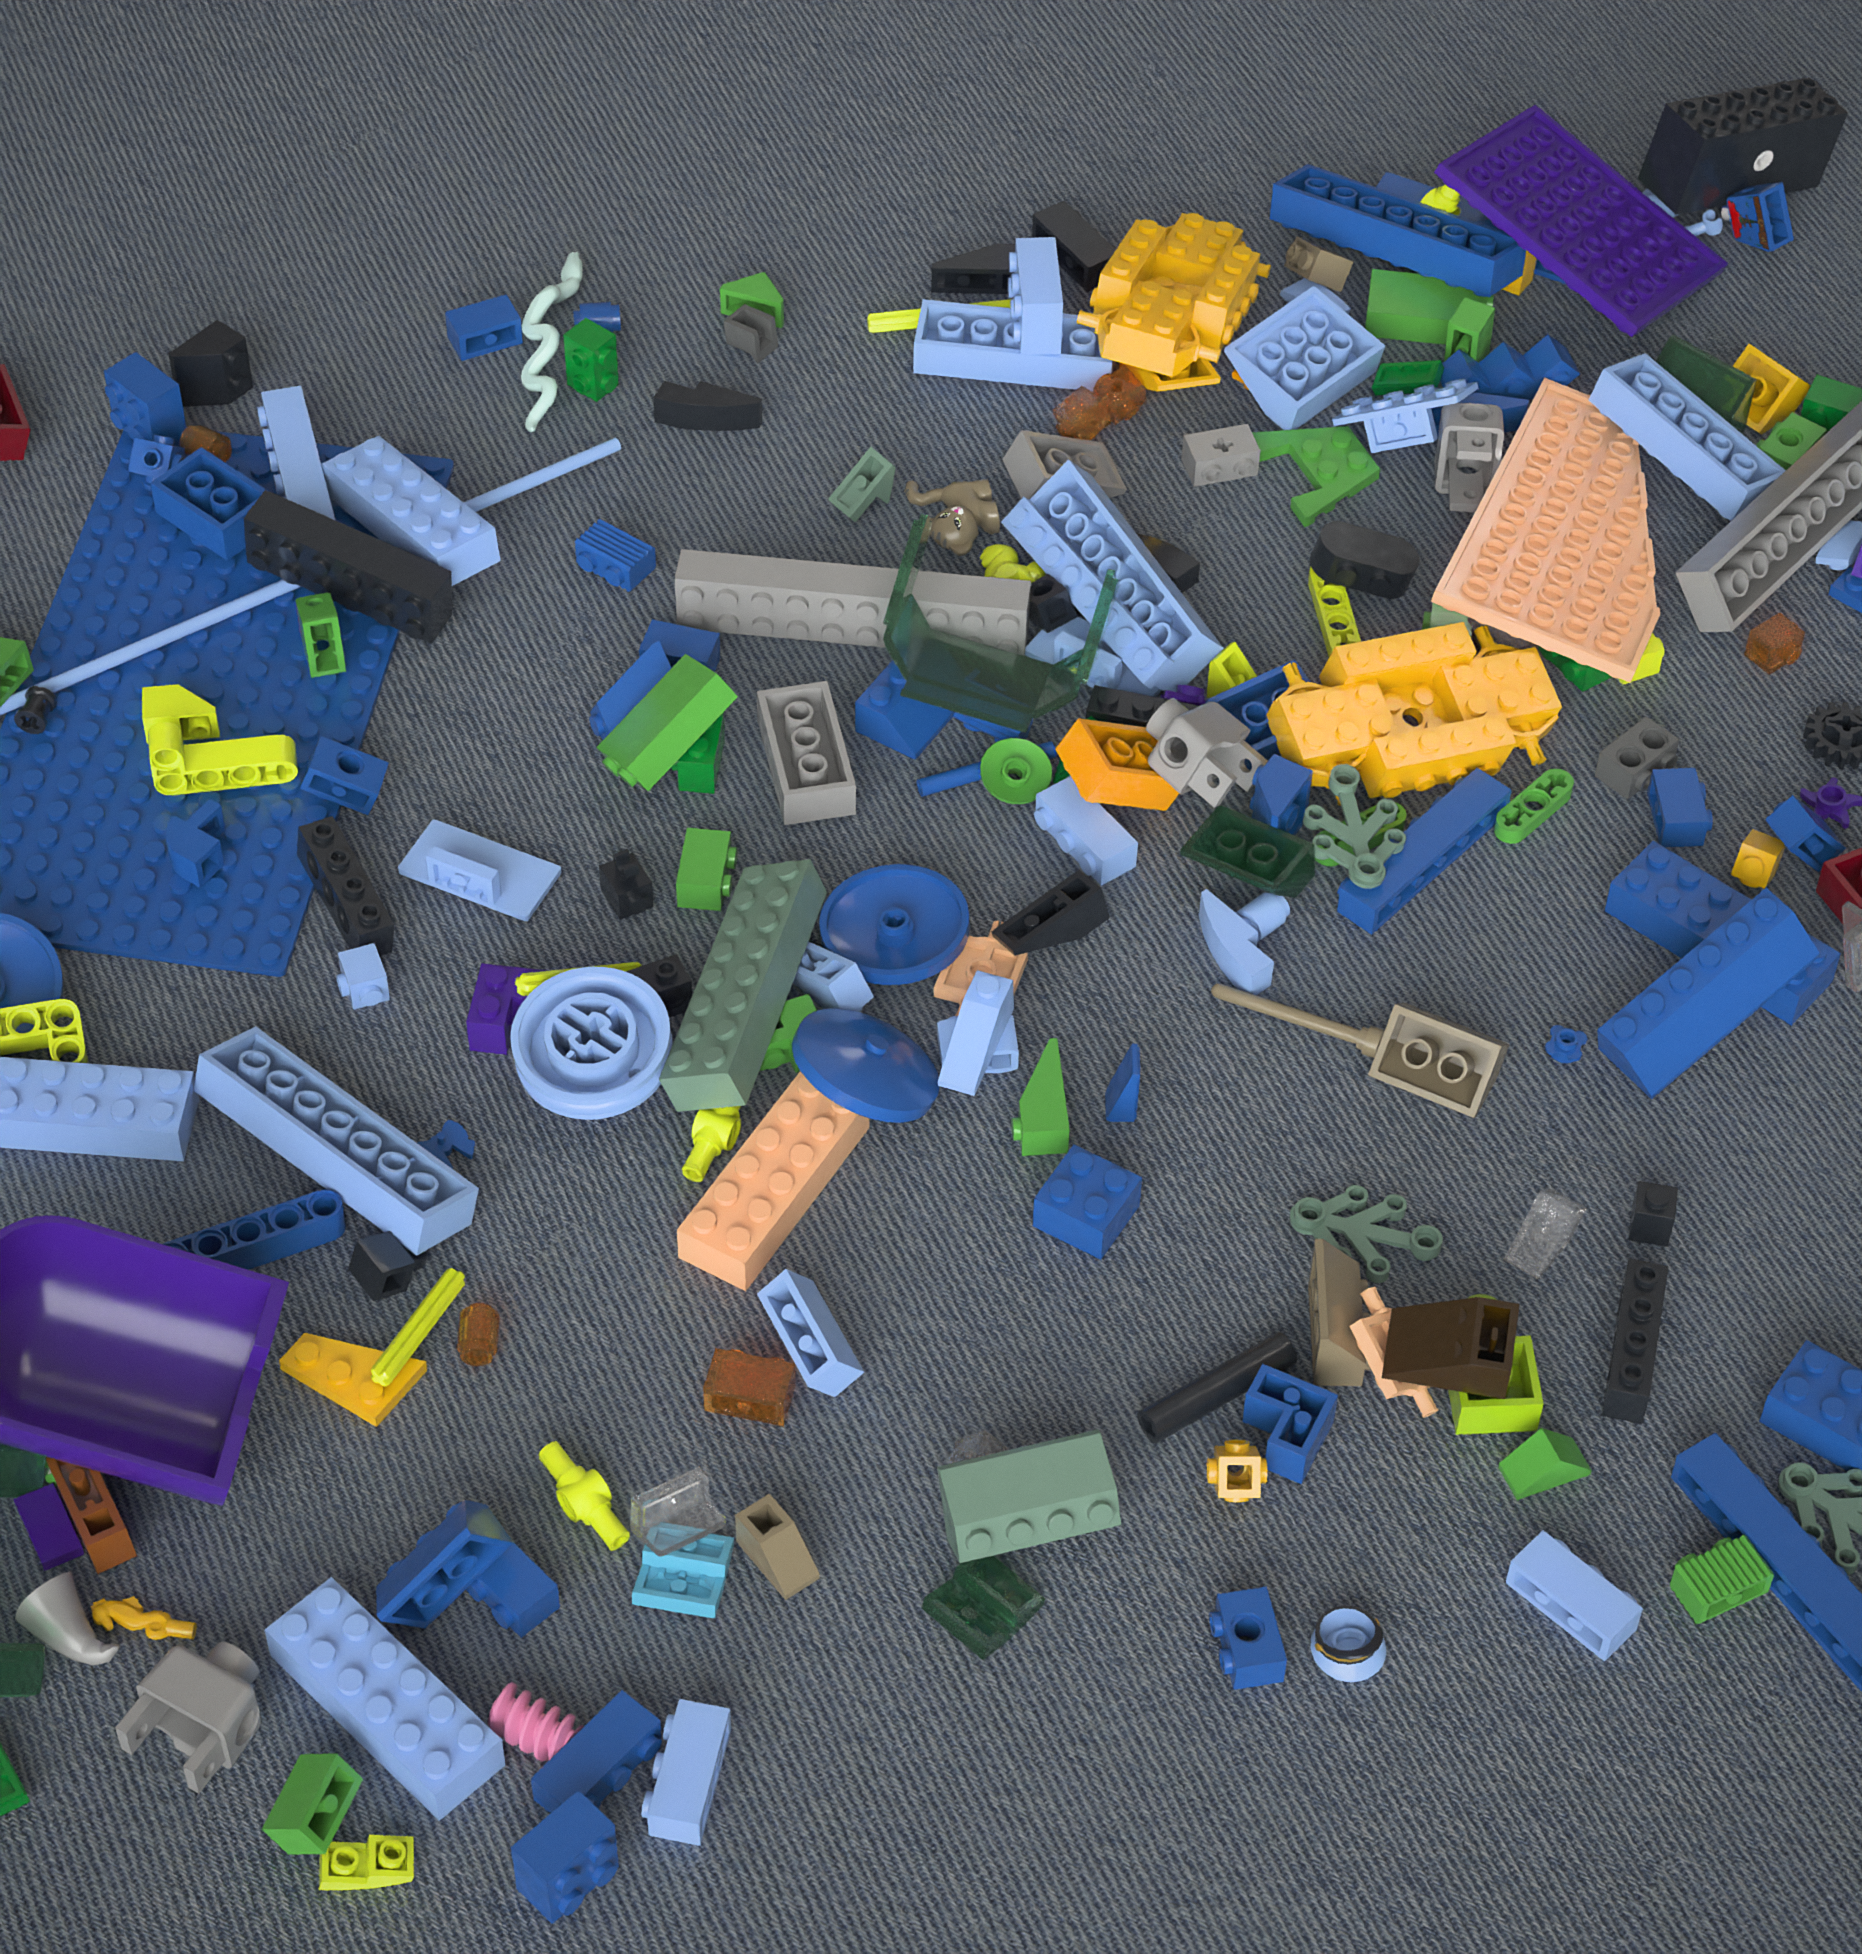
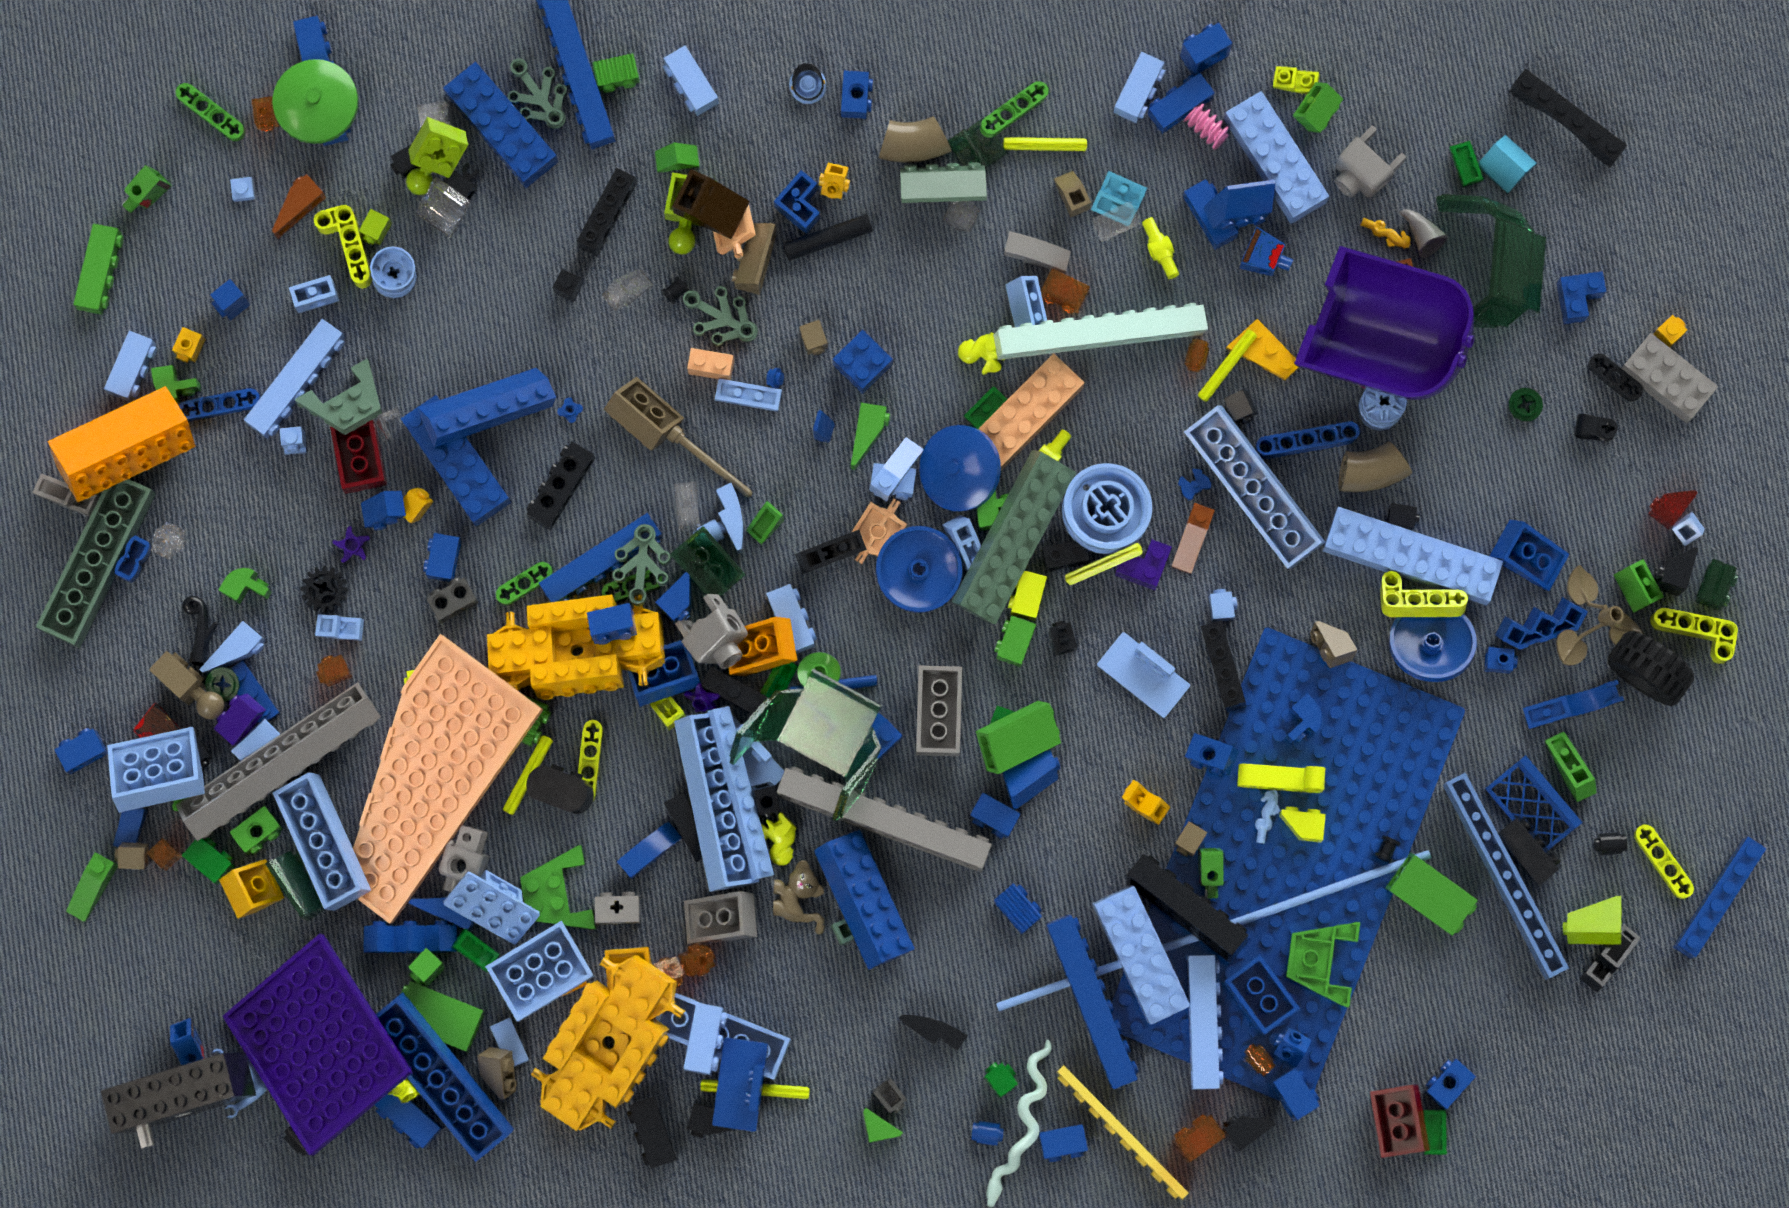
camera: 165 degrees left, 30 degrees up
(59, 1159) = (1403, 516): none -> black brick
(132, 1199) = (1372, 469): none -> dark tan brick
(140, 569) = (1312, 960): none -> bright green wing
(157, 955) = (1334, 644): none -> slope
(239, 715) = (1264, 824): none -> light blue animal
(284, 346) = (1198, 1138): none -> clear orange brick
(359, 667) = (1189, 839): none -> dark tan brick
(378, 1523) = (1265, 254): none -> blue torso
(400, 350) = (1127, 1139): none -> light yellow plate
(430, 1070) = (1192, 538): none -> slope
(439, 706) = (1145, 803): none -> yellow brick
(477, 460) = (1091, 1001): none -> blue brick
(664, 1304) = (1100, 331): none -> light aqua brick
(697, 926) = (1028, 596): none -> neon yellow brick
(820, 1439) = (1036, 252): none -> light grey slope
(845, 1180) = (985, 408): none -> green plate
(846, 502) = (864, 899): none -> blue brick
(851, 1634) = (1046, 144): none -> neon yellow axle
(867, 1271) = (983, 347): none -> neon yellow animal
(934, 1678) = (1014, 109): none -> bright green beam
(968, 282) = (740, 1084): none -> blue bracket
(1104, 1567) = (914, 141): none -> dark tan brick
(1170, 953) = (765, 523): none -> bright green slope
(1187, 1224) = (813, 338): none -> dark tan brick
(1206, 516) = (649, 850): none -> blue slope
(1233, 1152) = (775, 378): none -> blue plate
(1270, 1121) = (748, 395): none -> light blue plate
(1312, 942) = (687, 506): none -> clear brick
(1353, 1146) = (710, 364): none -> light nougat brick
(1369, 712) = (612, 624): none -> blue brick
(1421, 582) = (520, 788): none -> neon yellow axle
(1461, 1248) = (675, 290): none -> black bush
(1534, 933) = (548, 516): none -> black brick
(1792, 703) = (339, 627): none -> light blue slope

